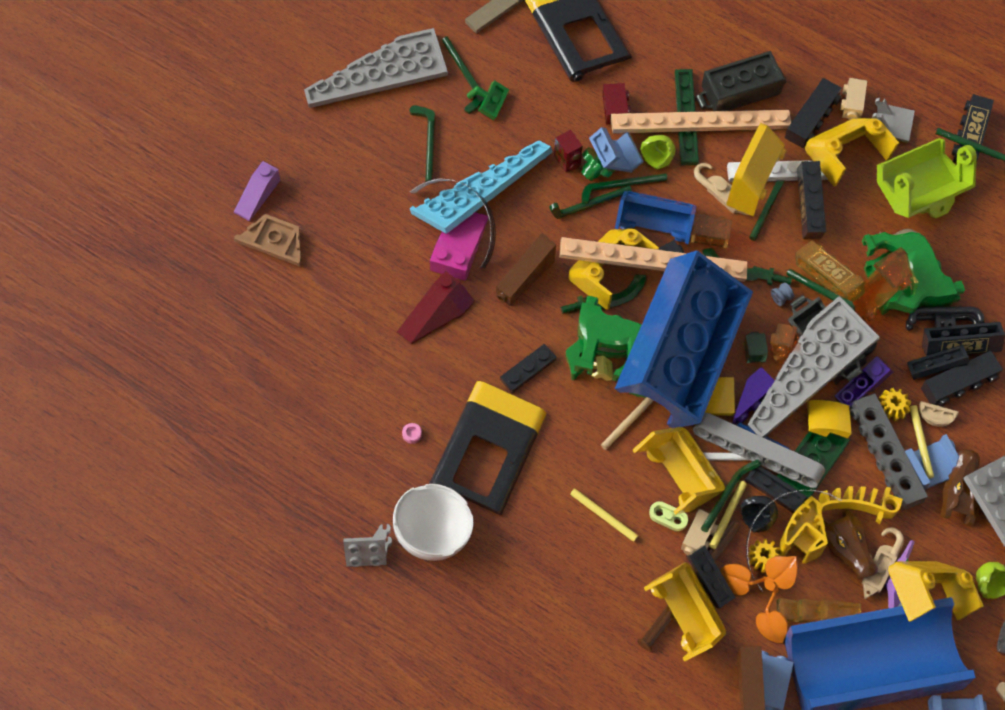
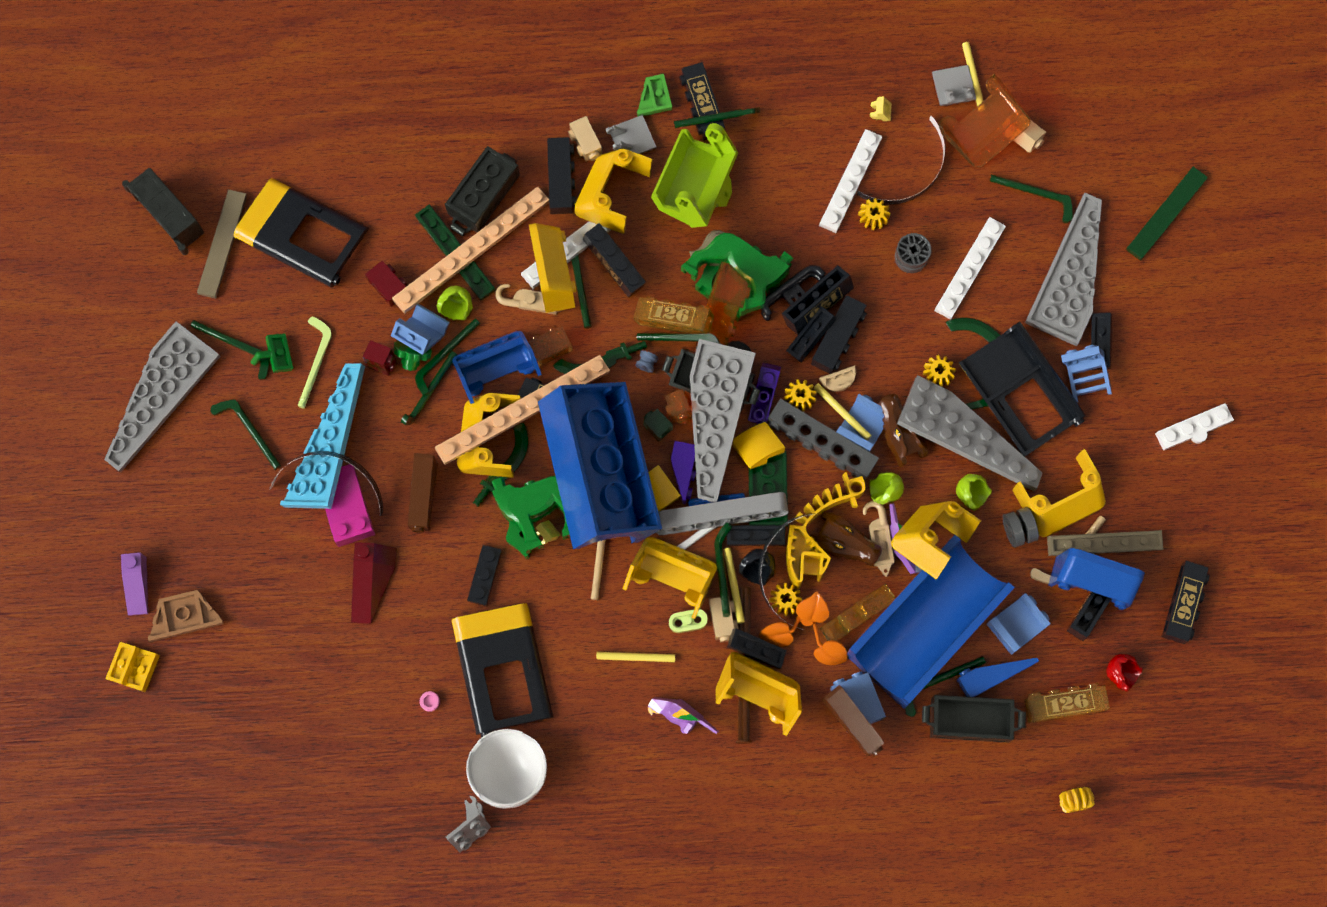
camera: 35 degrees left, 10 degrees up
(207, 250) = (132, 667): none -> yellow slope
(515, 128) = (318, 359): none -> yellowish green piece
(606, 583) = (679, 713): none -> medium lavender animal
(917, 526) = (886, 488): none -> lime hair
(934, 104) = (655, 96): none -> bright green wing

